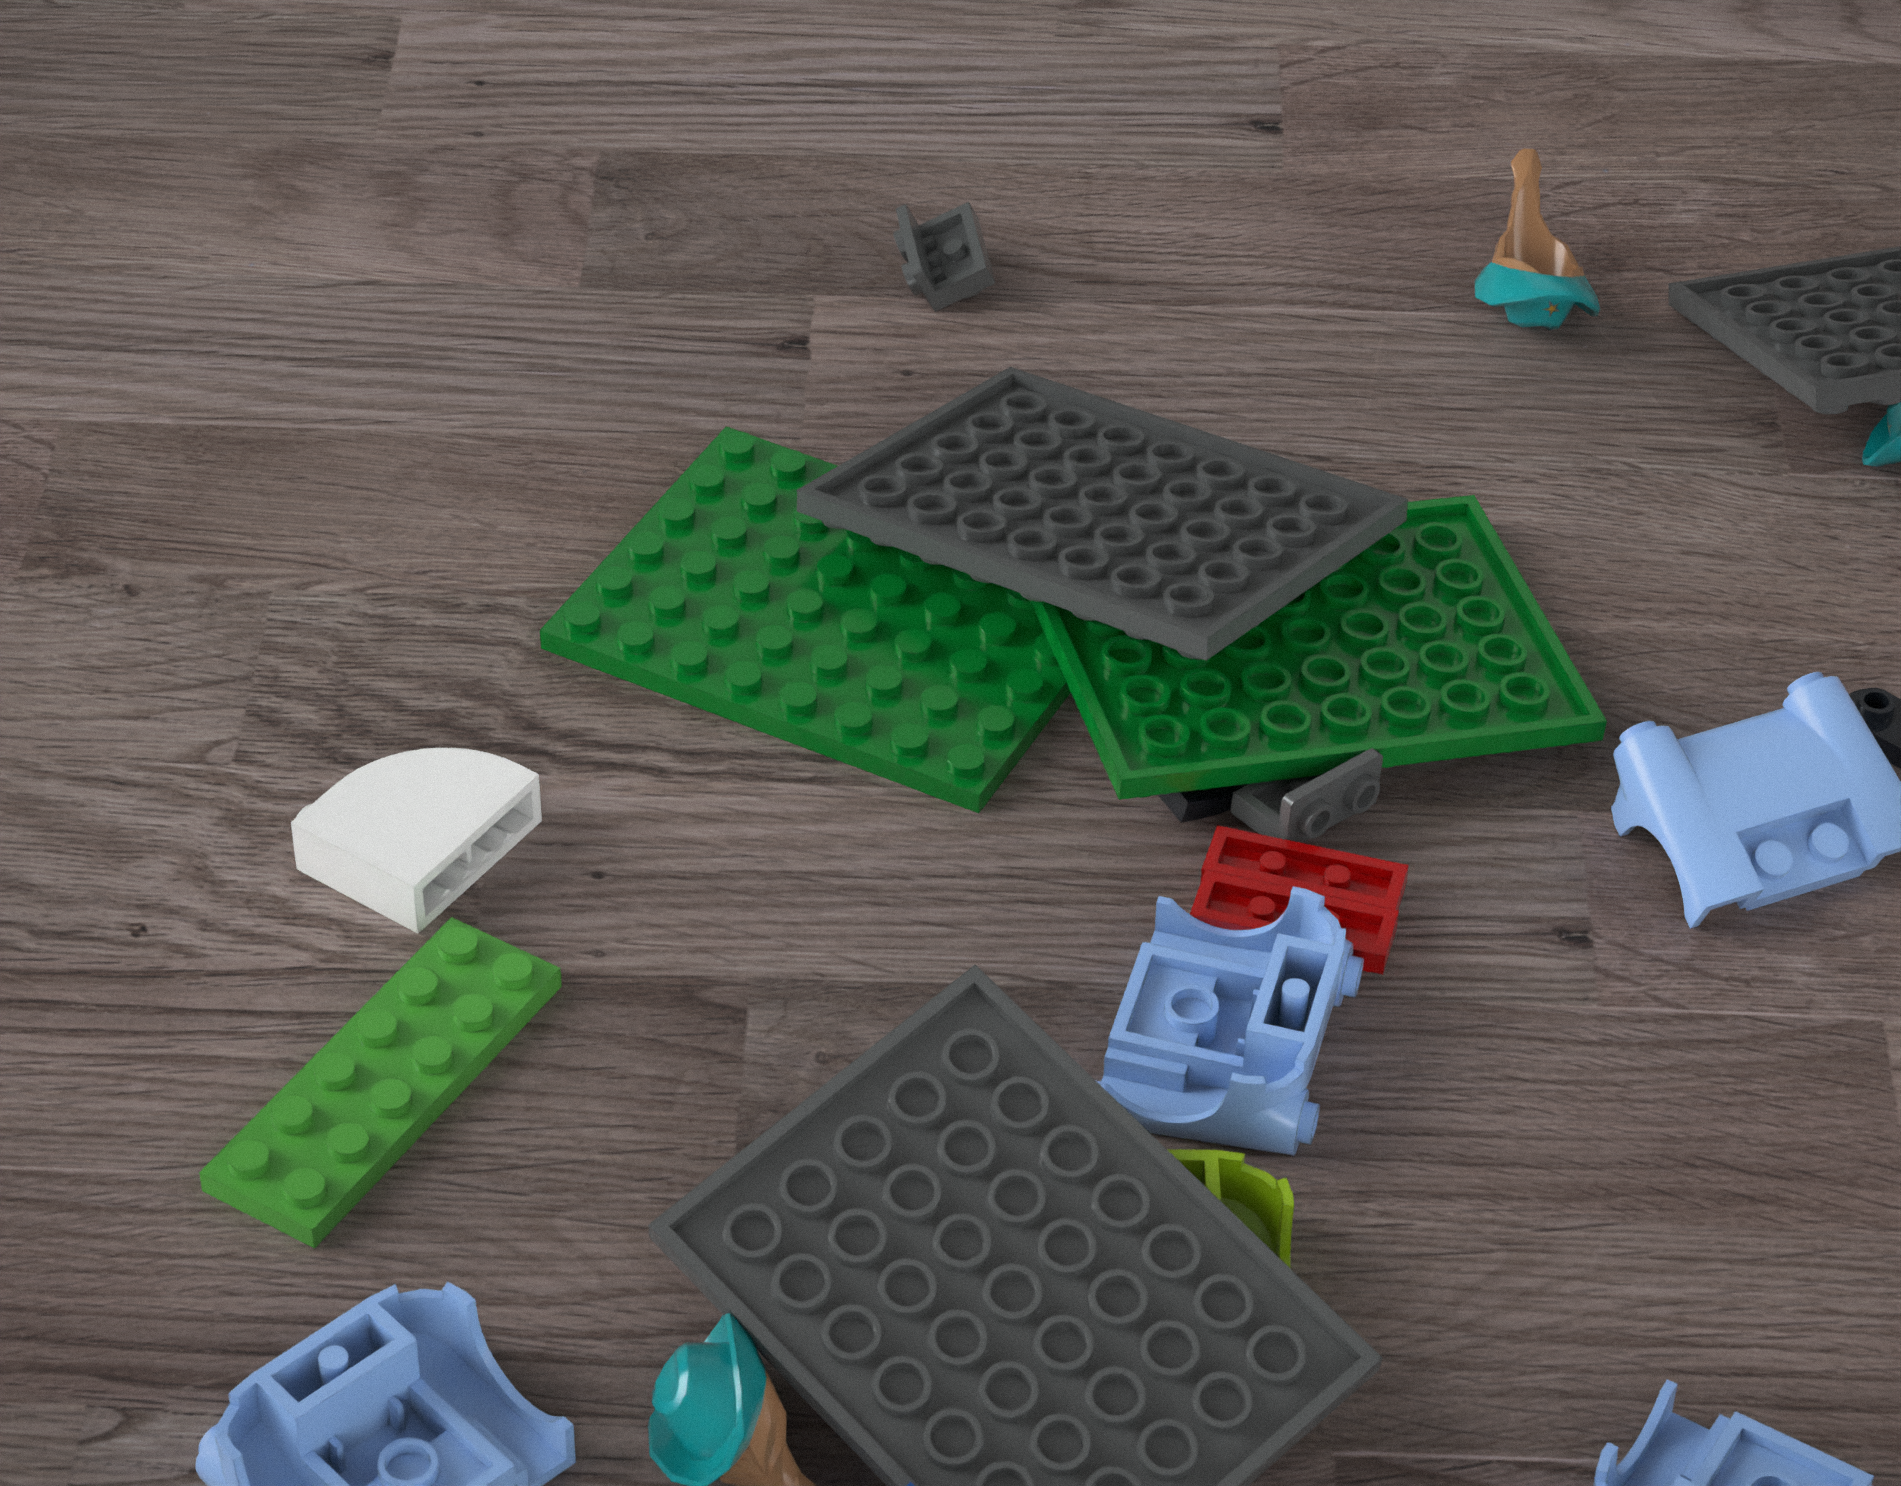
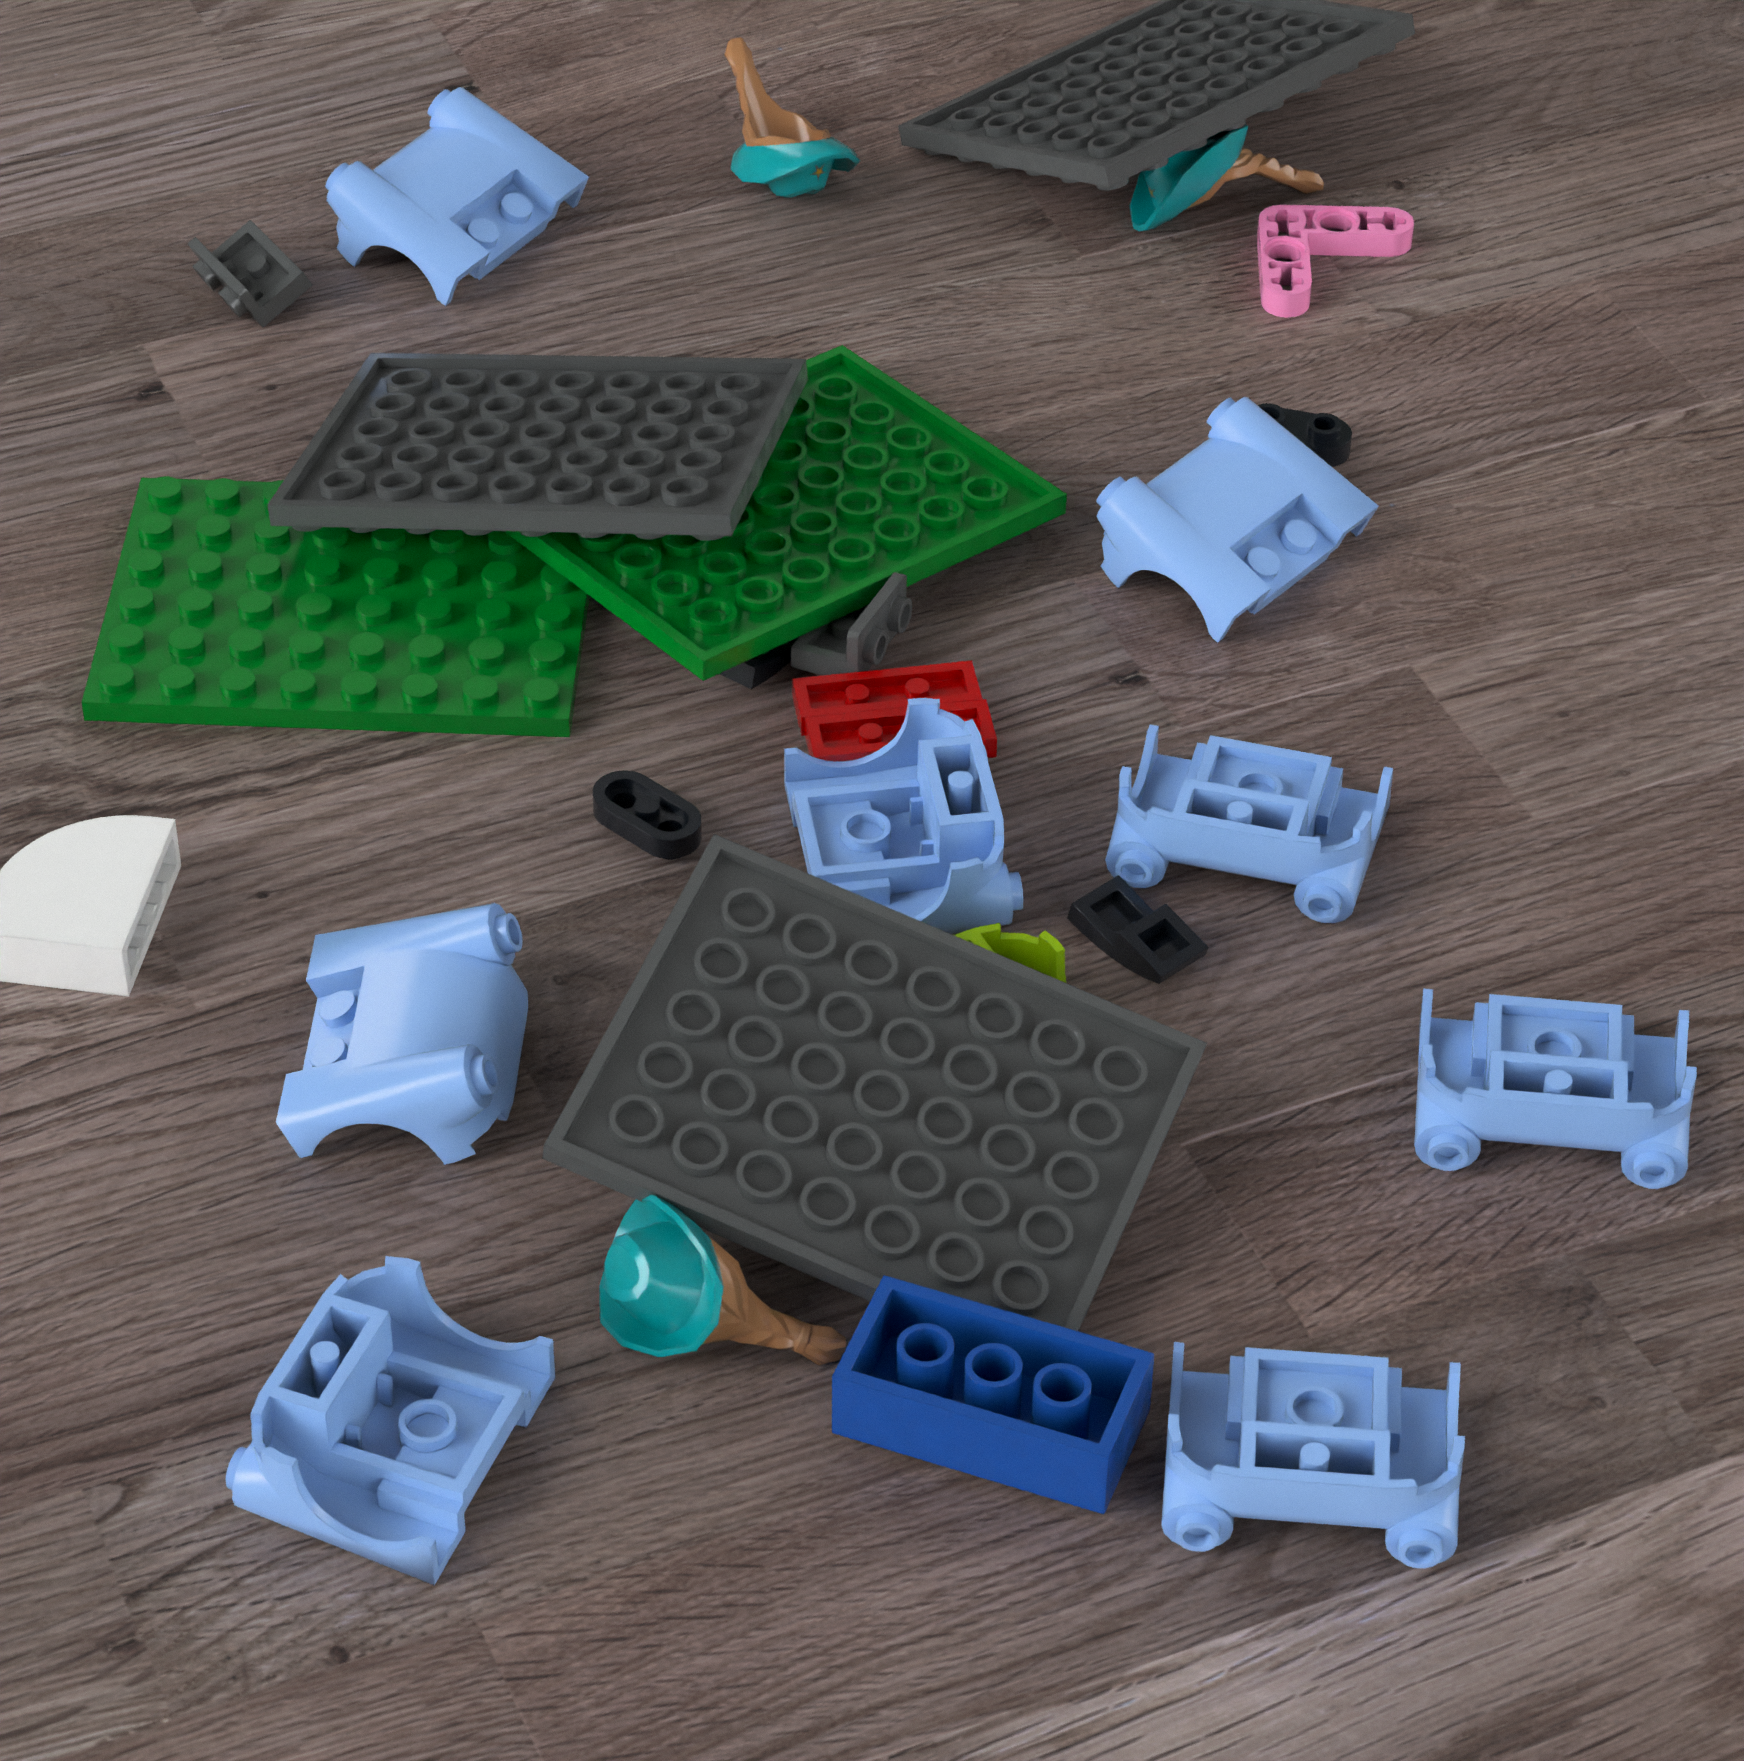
camera: 25 degrees left, 0 degrees up
(380, 1082) = (180, 1129): bright green plate -> none
(636, 1064) = (412, 1031): none -> light blue piece
(1005, 927) = (647, 814): none -> black plate
(1179, 232) = (454, 195): none -> light blue piece
(1413, 1210) = (1133, 934): none -> black slope
(1602, 1129) = (1251, 816): none -> light blue piece

